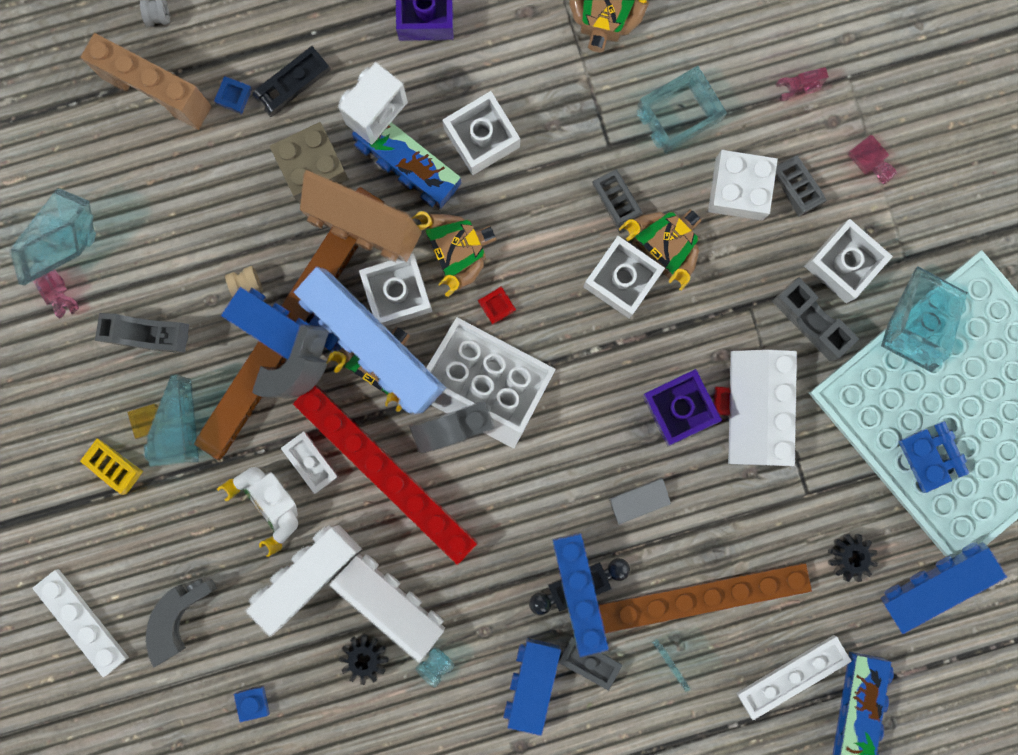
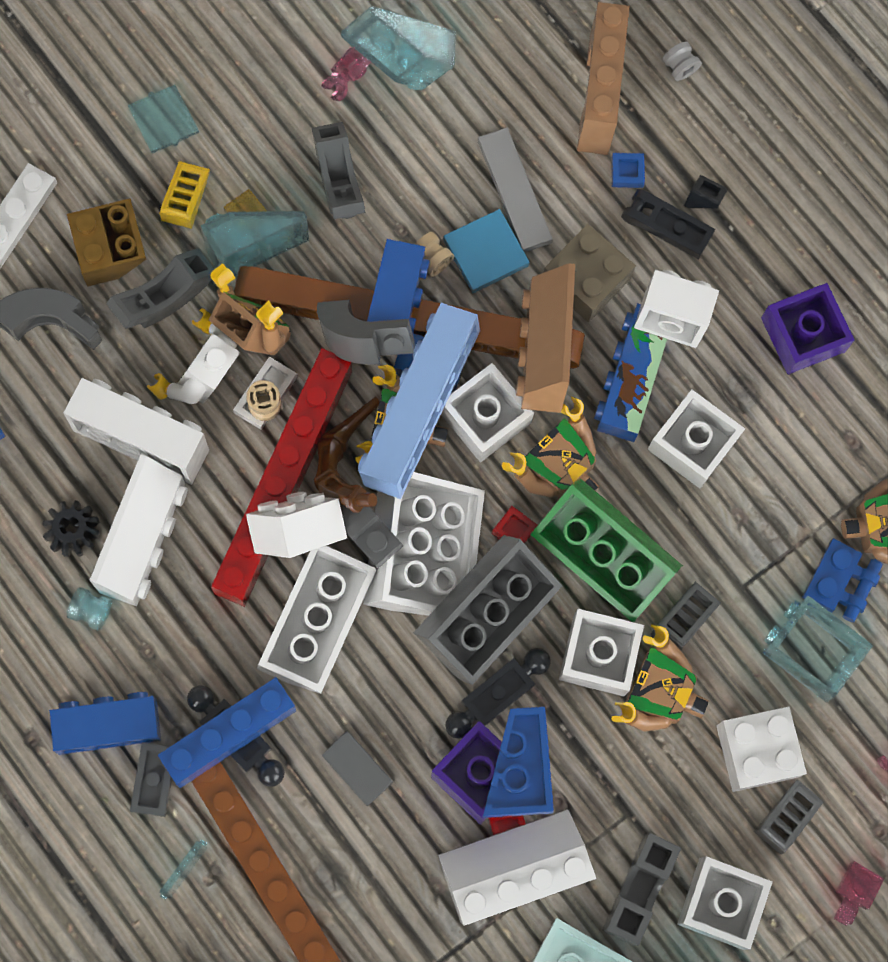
camera: 65 degrees right, 10 degrees down
(36, 460) = (163, 119): none -> clear light blue piece
(128, 547) = (106, 241): none -> pearl gold slope
(192, 514) = (165, 293): none -> dark grey arch
(213, 194) = (514, 189): none -> light grey tile
(246, 456) = (245, 322): none -> medium nougat torso
(257, 237) = (486, 251): none -> dark azure tile
(278, 40) = (705, 194): none -> black slope
(322, 469) = (266, 406): none -> tan wheel
(380, 428) = (331, 452): none -> reddish brown animal
(437, 480) = (296, 525): none -> white brick
(513, 490) = (316, 619): none -> white slope
(546, 240) = (606, 550): none -> green brick
(557, 351) = (488, 609): none -> dark grey brick
(622, 369) = (498, 692): none -> black plate
(626, 71) = (833, 575): none -> blue plate
(696, 374) = (522, 769): none -> blue wing

